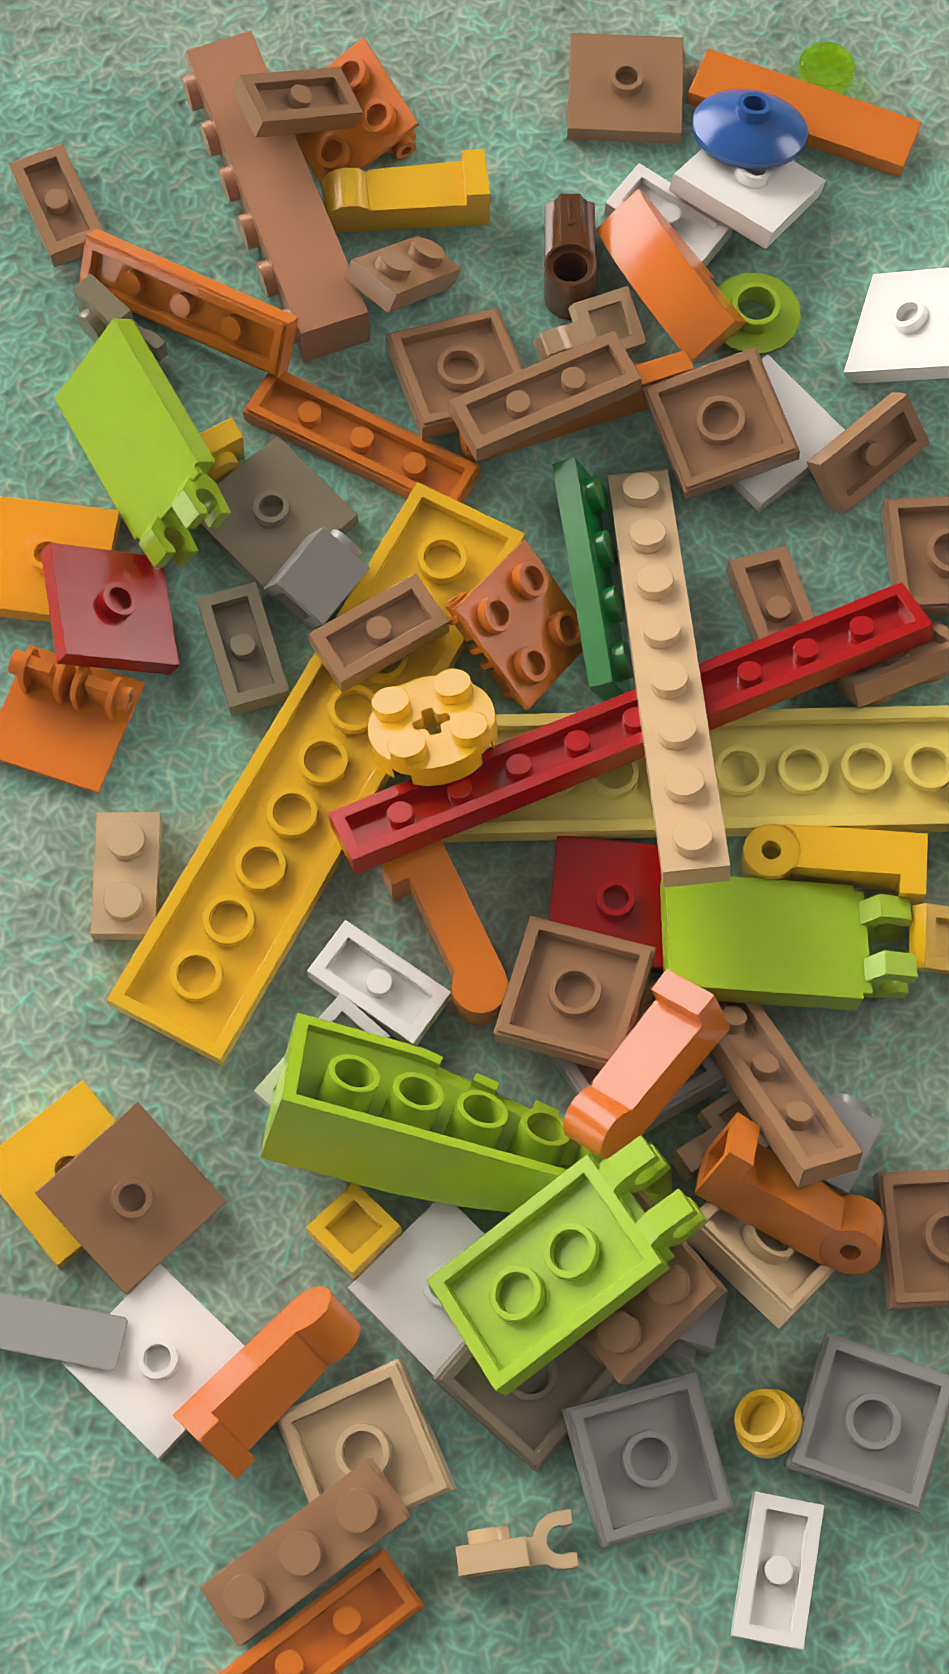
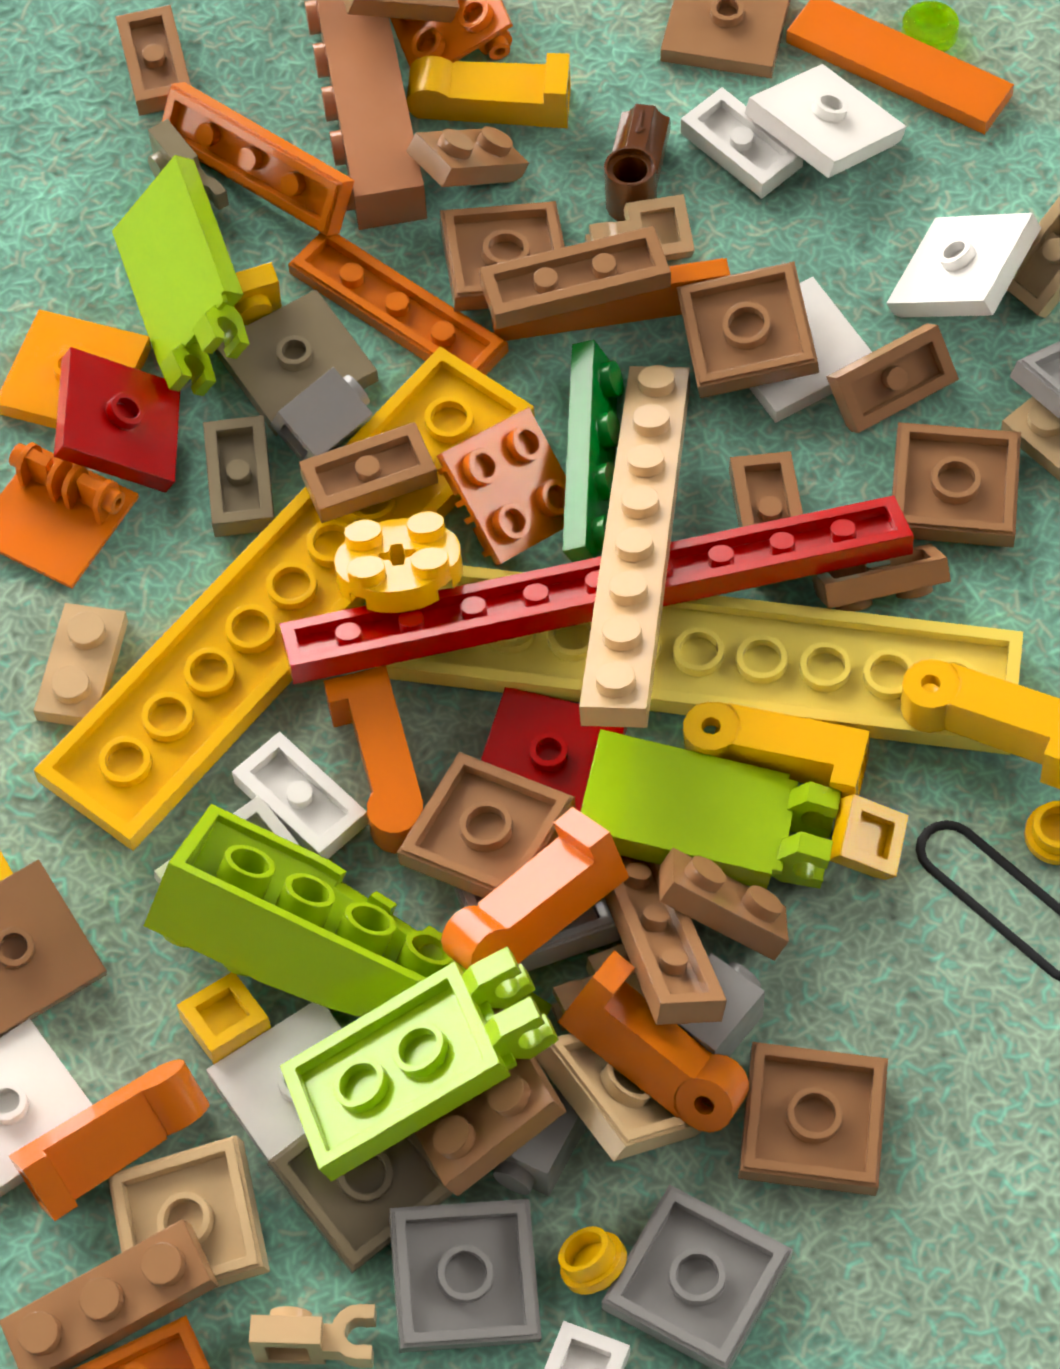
camera: 15 degrees right, 10 degrees down
(669, 278) = (728, 194): orange slope -> none
(749, 129) = (836, 68): blue dish -> none
(768, 333) = (815, 258): lime piece -> none
(822, 1036) = (722, 903): none -> medium nougat plate

